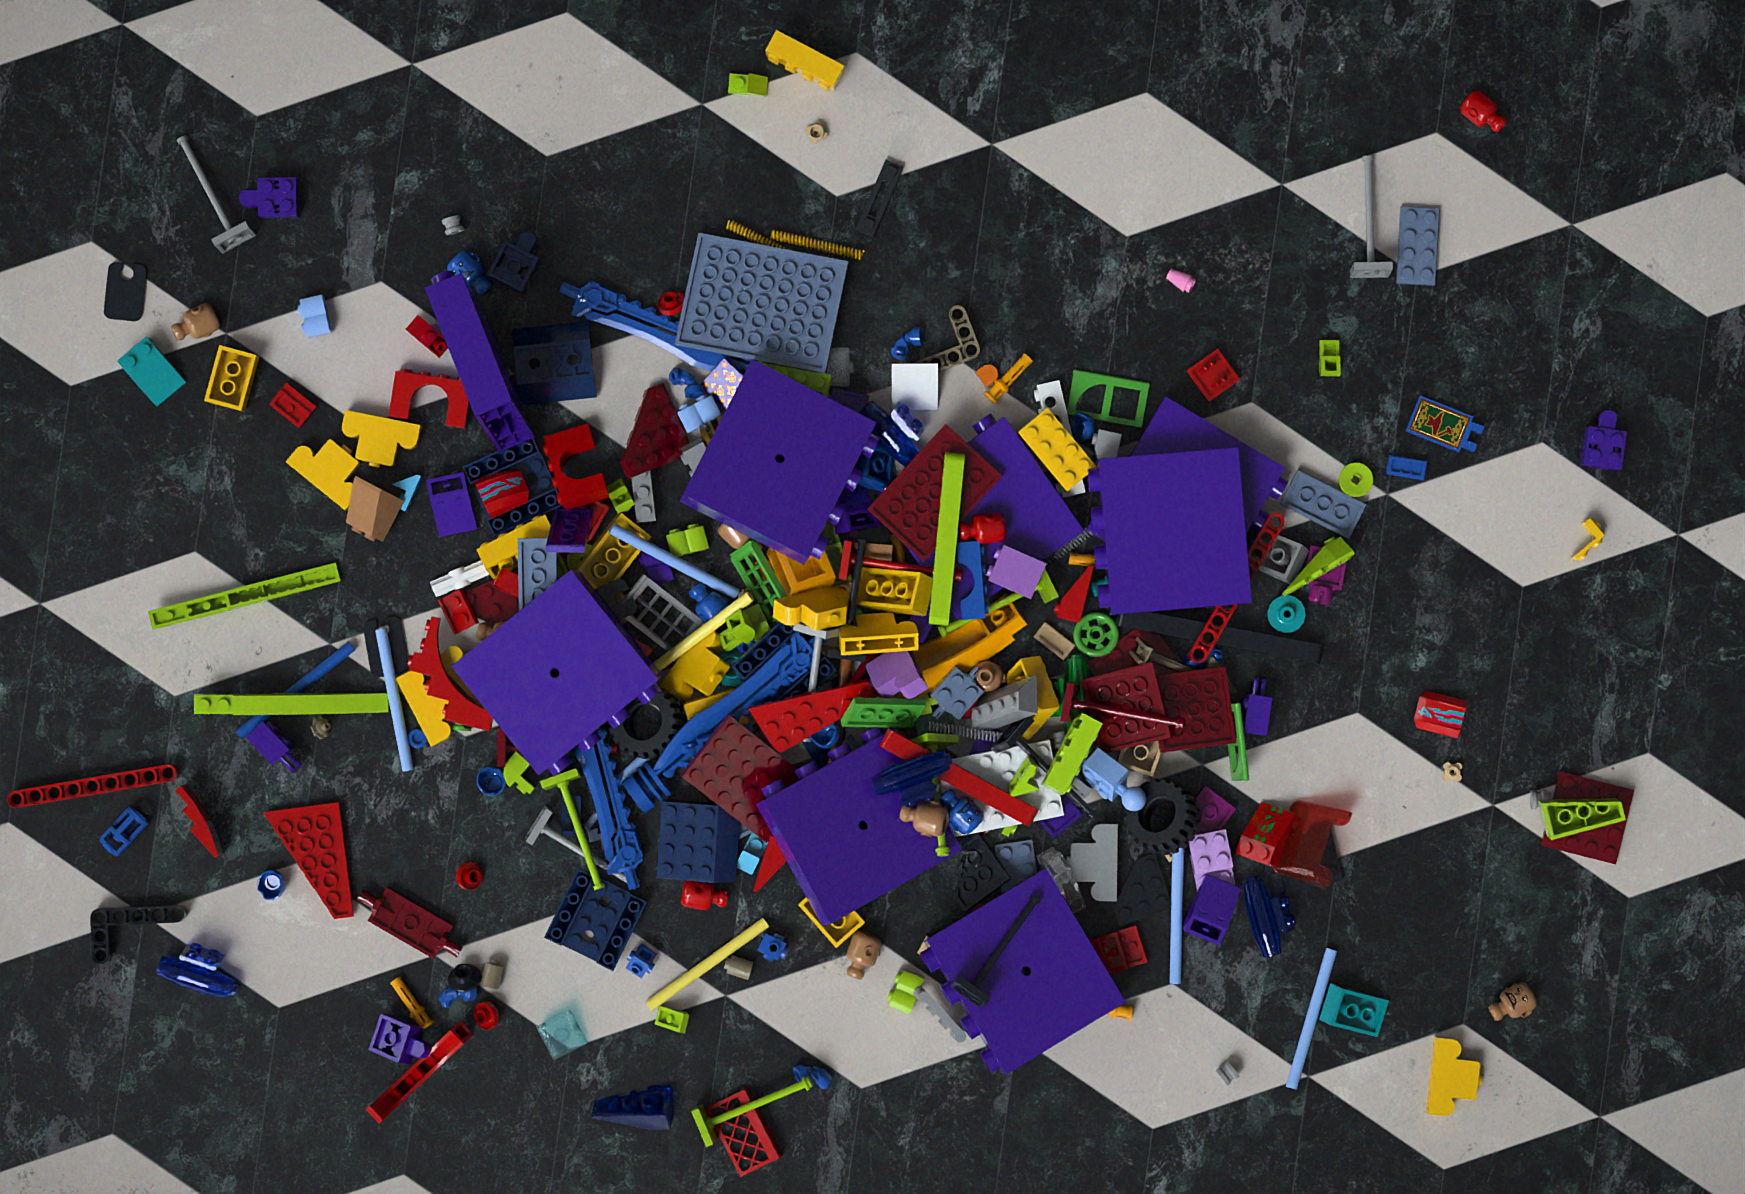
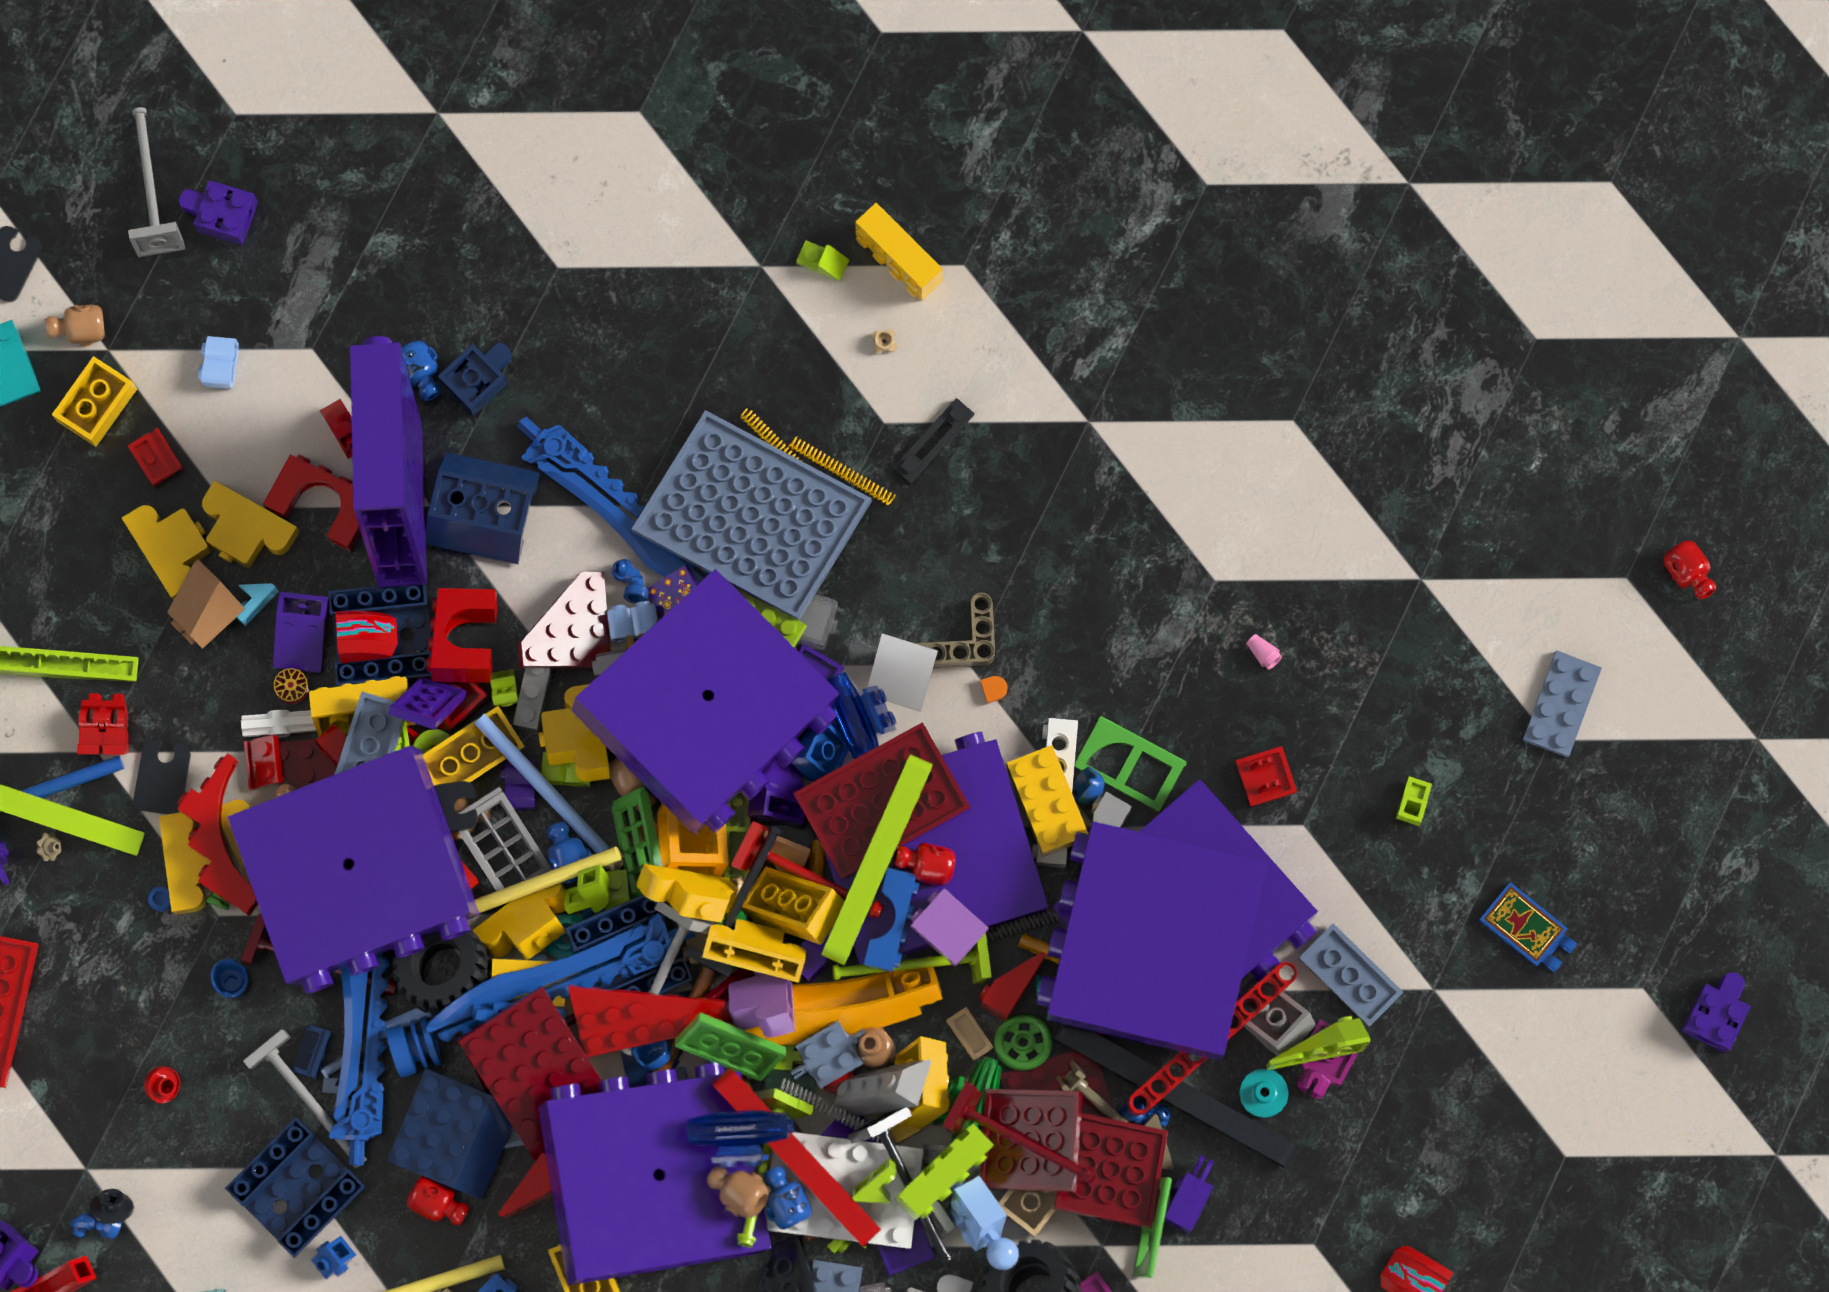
camera: 20 degrees right, 10 degrees down
(326, 616) = (103, 715): none -> red hips
(394, 699) = (149, 843): light blue piece -> none
(410, 923) = (70, 1118): dark red plate -> none
(415, 1013) = (29, 1189): light orange pin -> none
(452, 225) = (419, 309): light grey wheel -> none
(458, 547) = (291, 686): none -> wheel
(486, 1015) = (121, 1262): red plate -> none
(492, 974) = (146, 1214): dark tan brick -> none
(513, 773) = (260, 976): lime brick -> none
(561, 781) = (313, 1004): lime tile -> none
(671, 303) = (644, 482): red plate -> none
(683, 521) = (573, 742): none -> yellow brick
(751, 853) = (512, 1172): medium azure slope -> none
(901, 348) = (901, 623): blue arm -> none
(1001, 385) = (1007, 706): light orange pin -> none
(1360, 471) = (1409, 951): lime piece -> none
(1371, 268) = (1497, 709): light grey tile -> none
(1406, 467) = (1466, 964): blue plate -> none
(1593, 528) = (1674, 1112): yellow bracket -> none

